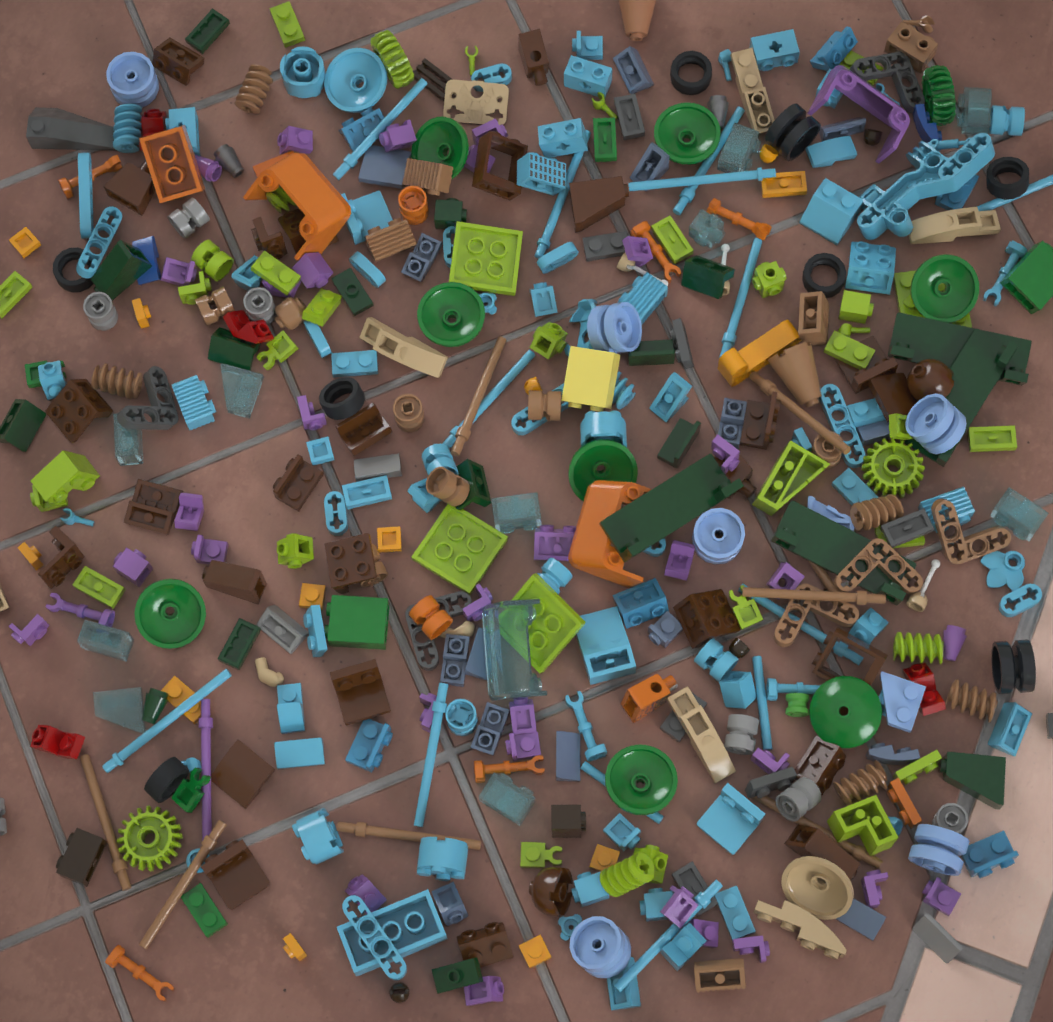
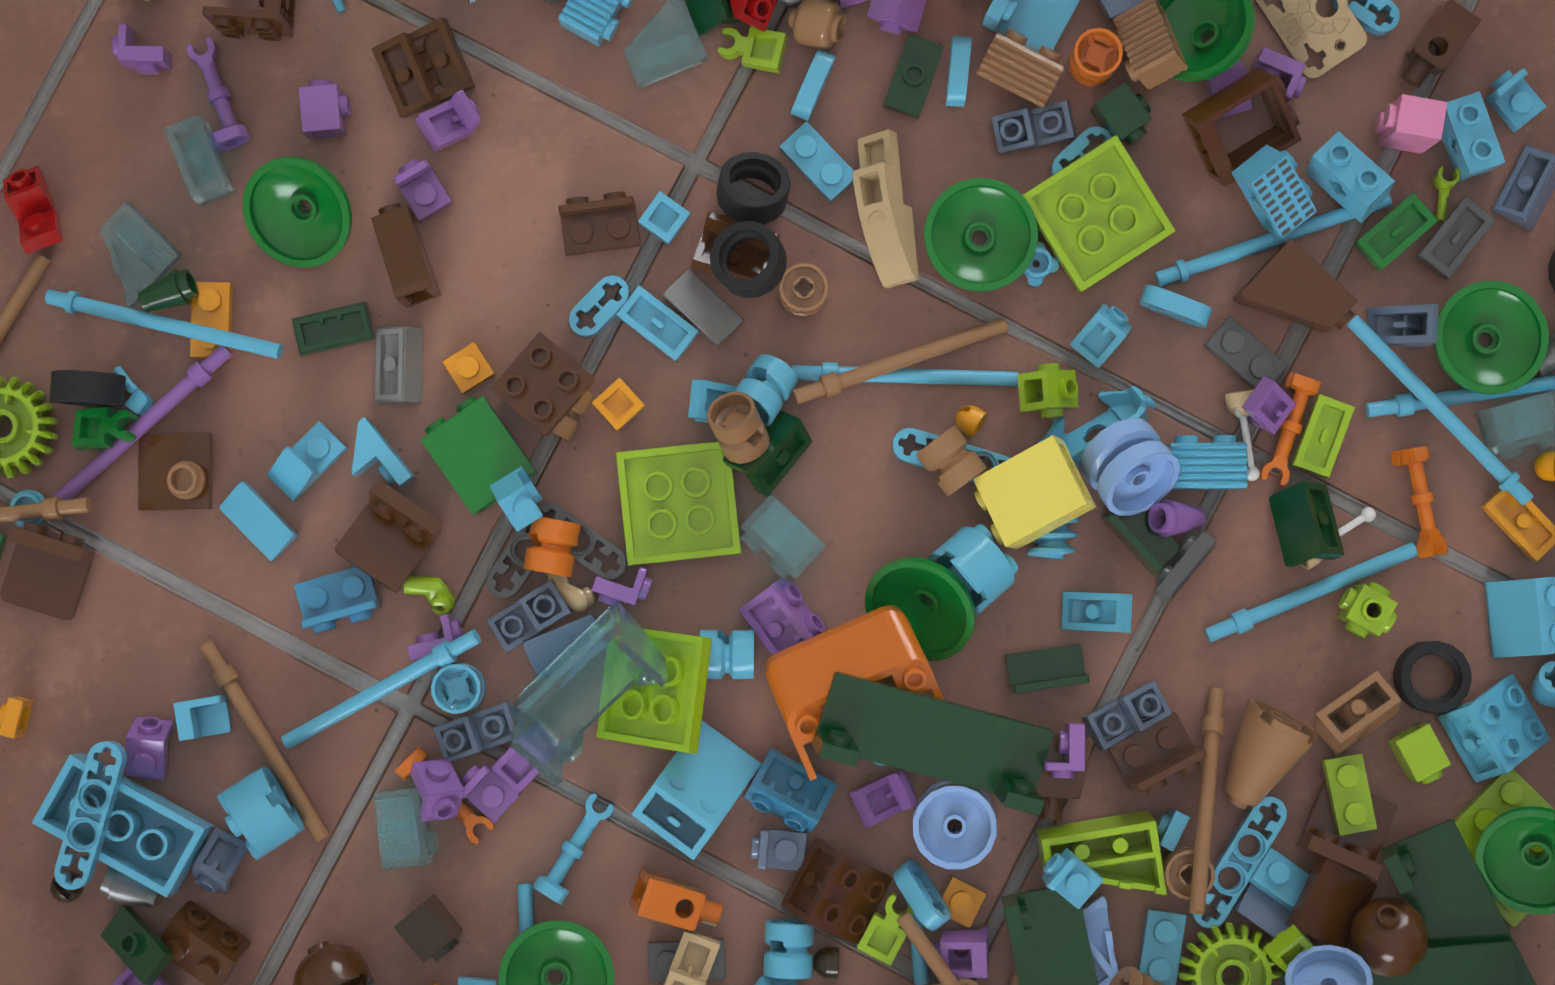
camera: 40 degrees right, 15 degrees up
(99, 587) = (264, 90): lime plate -> none
(251, 766) = (186, 480): none -> medium nougat plate
(268, 676) = (321, 396): tan arm -> none
(295, 550) = (505, 299): lime brick -> none
(309, 419) = (702, 155): medium lavender bracket -> none
(313, 667) = (373, 447): none -> medium azure slope
(316, 640) = (413, 423): medium azure plate -> none
(318, 836) = (166, 636): medium azure brick -> none
(321, 307) = (857, 57): lime plate -> none
(357, 418) = (728, 241): none -> black tyre
(371, 855) = (202, 717): none -> medium azure panel
(394, 613) = (518, 498): none -> medium azure brick
(404, 695) = (434, 590): none -> lime arm
(425, 959) = (126, 890): none -> flat silver cone
(502, 761) = (438, 789): none -> medium lavender bracket
(534, 855) = (364, 916): lime plate -> none
(561, 94) = (1411, 123): none -> bright pink brick
(567, 756) = (519, 858): sand blue slope -> none
(655, 330) = (1173, 517): none -> medium lavender cone
(707, 229) = (1386, 473): clear light blue brick -> none
(738, 365) = (1252, 677): light orange beam -> none
(740, 578) = (921, 895): none -> medium azure beam
(759, 566) = (962, 900): none -> light orange plate
(786, 497) = (1071, 877): none -> medium azure bracket
(846, 329) = (1377, 764): lime hand -> none

